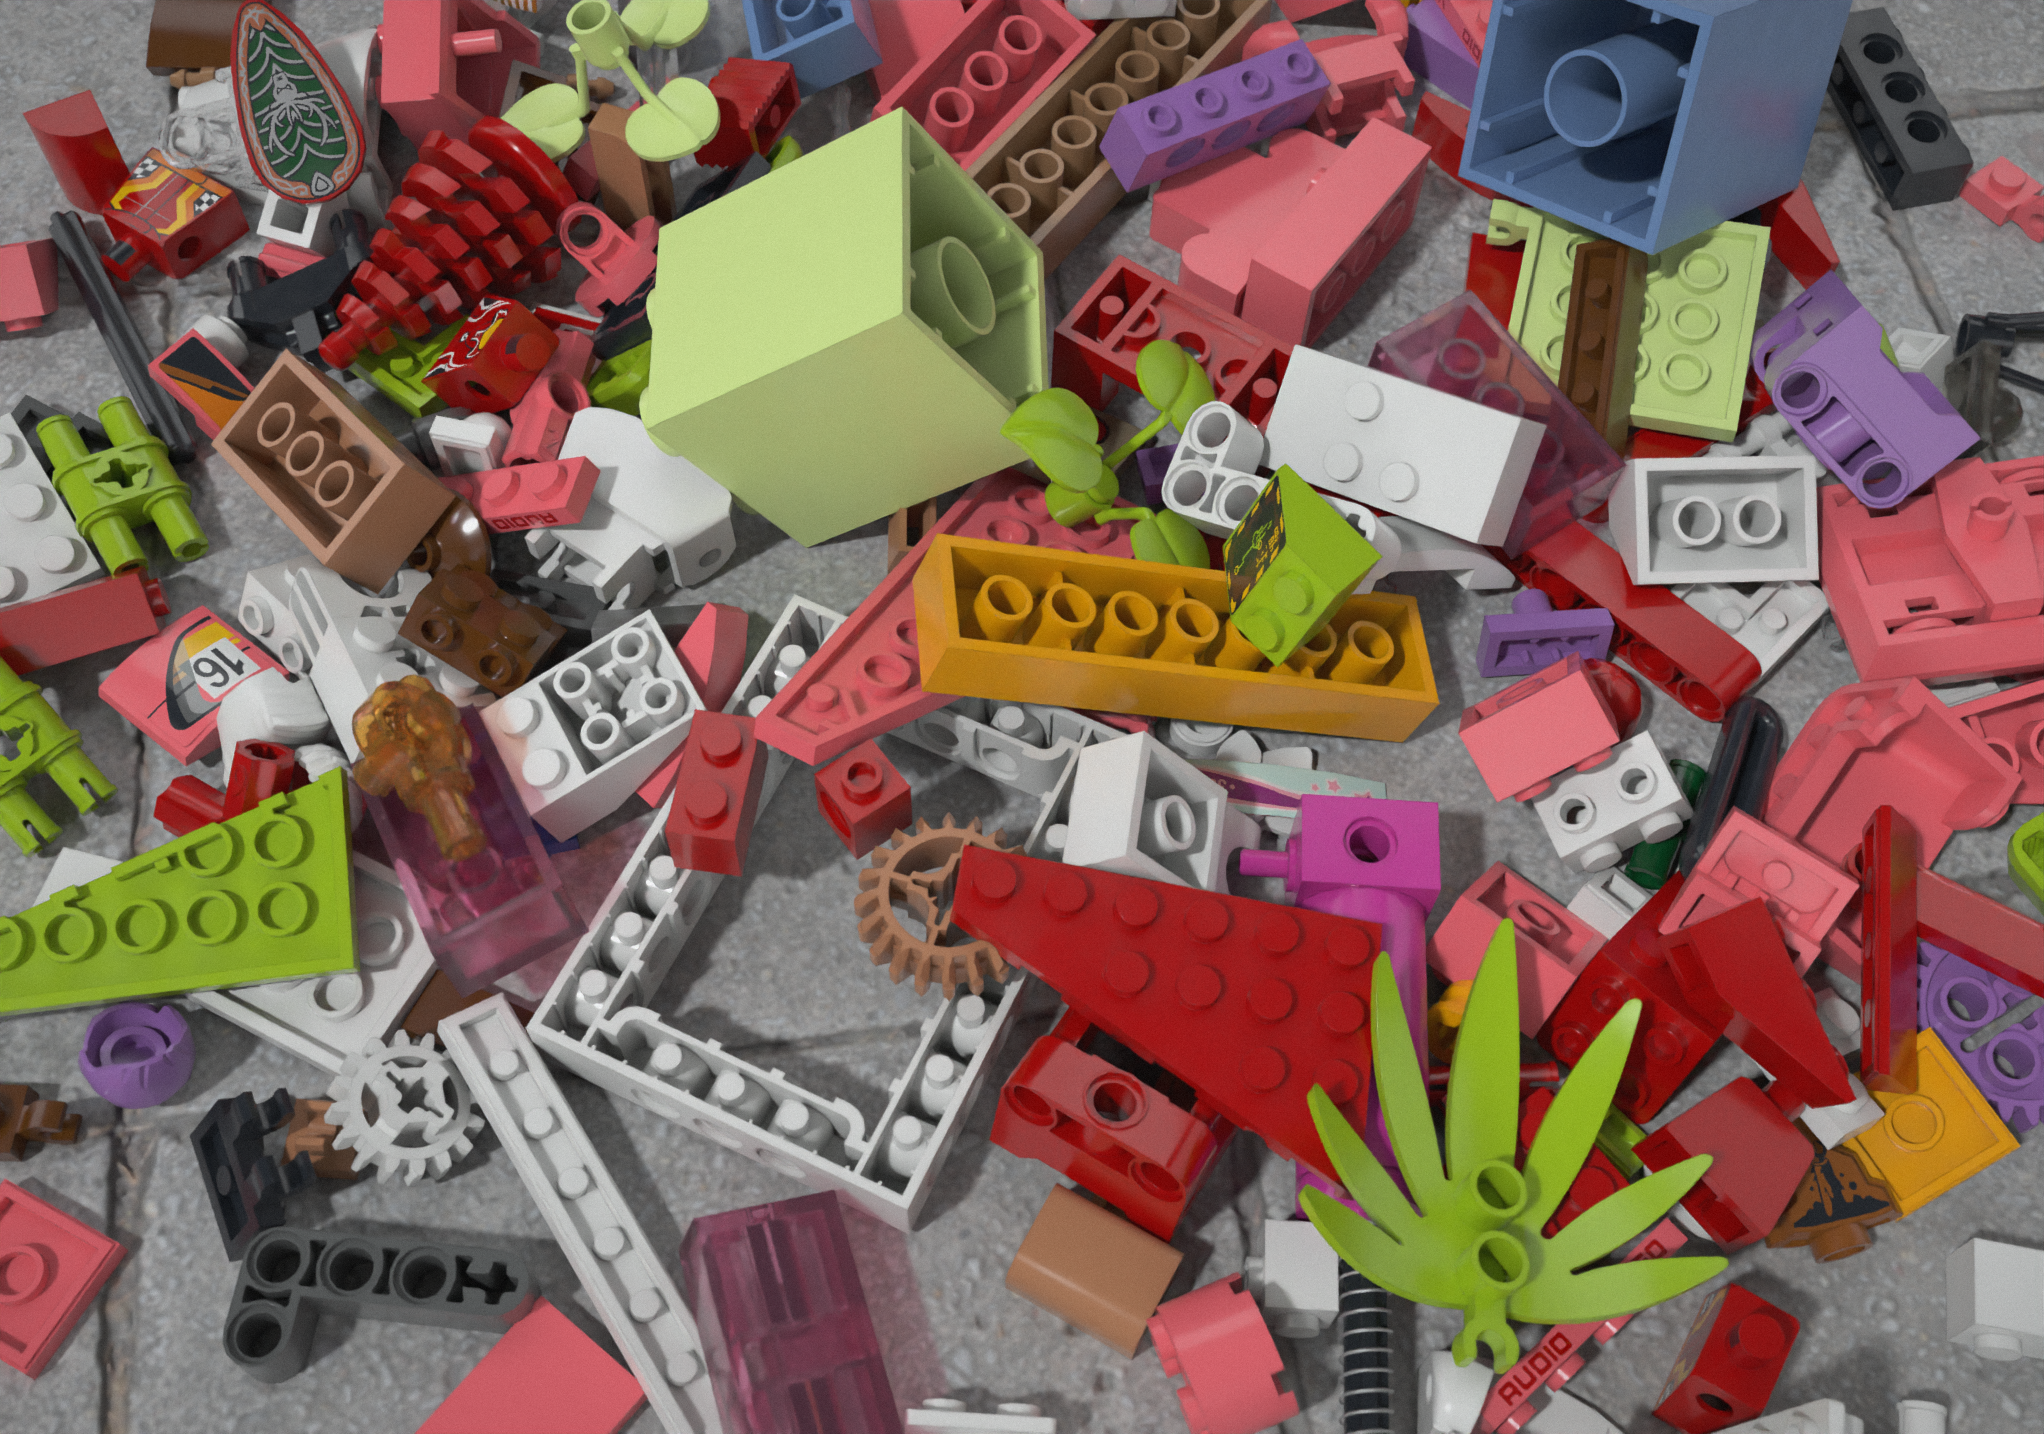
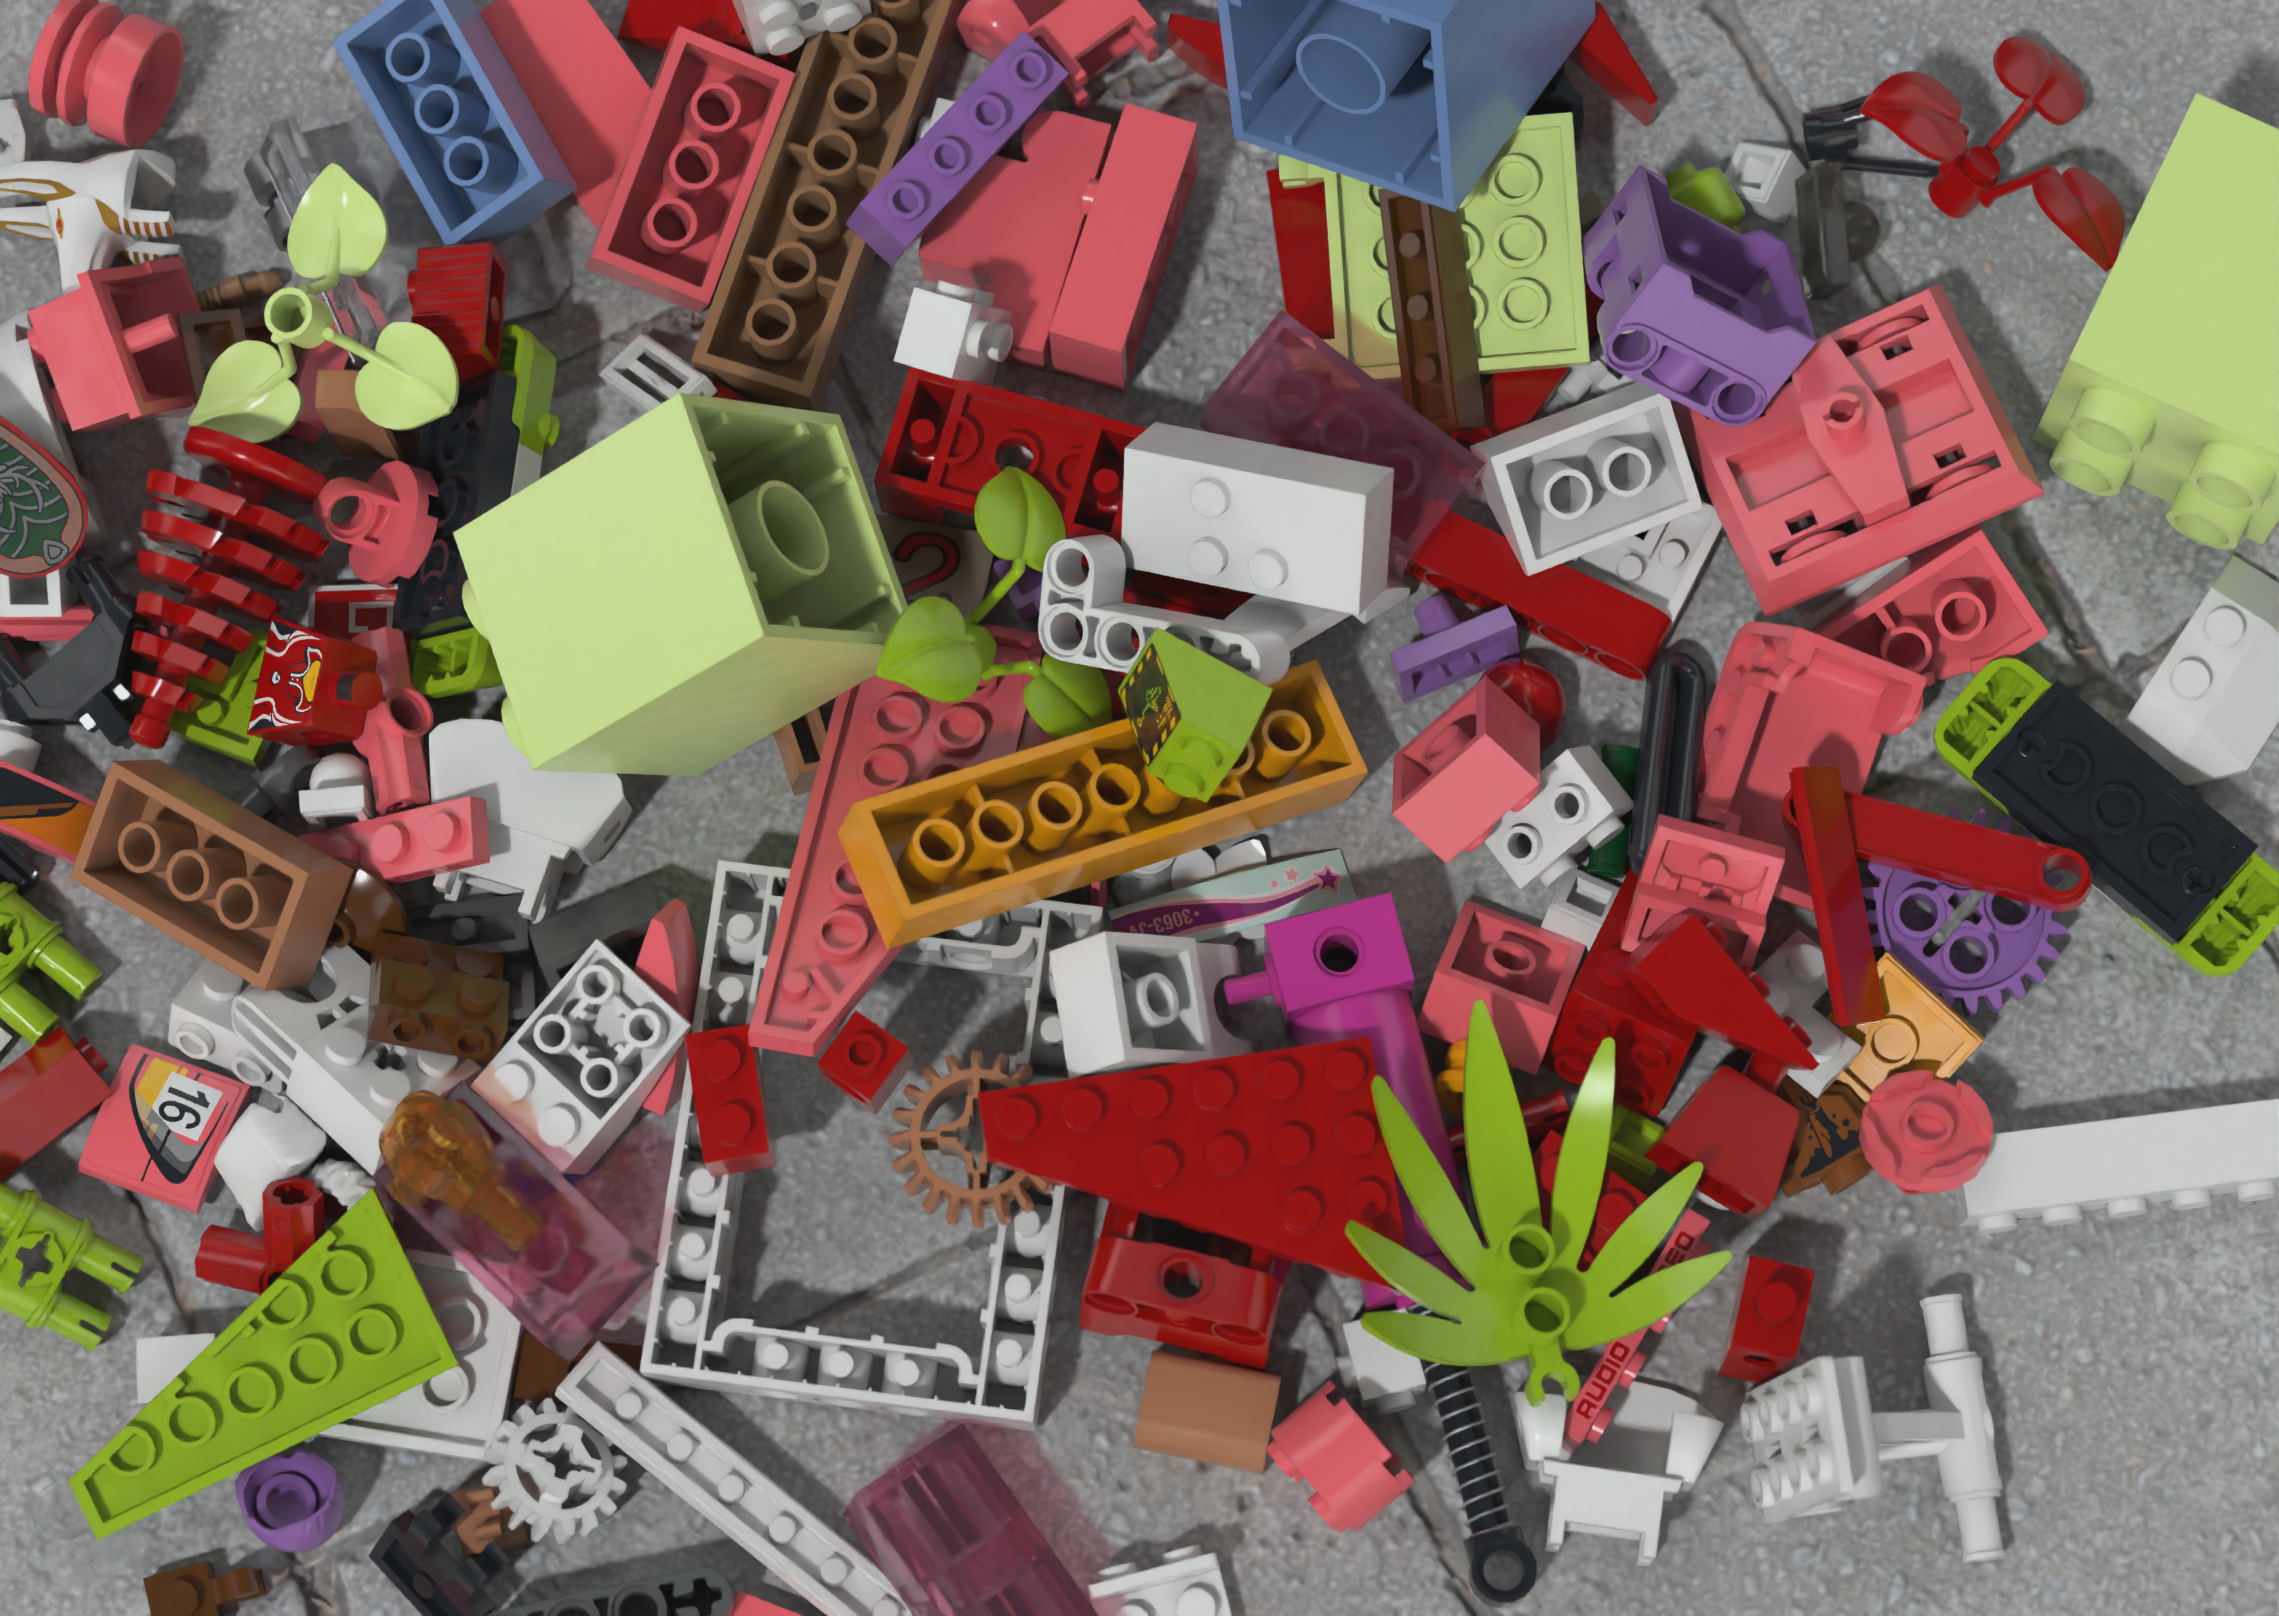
camera: 10 degrees left, 15 degrees up
(1166, 232) = (955, 333): none -> white brick
(1943, 1222) = (1925, 1132): none -> coral tile

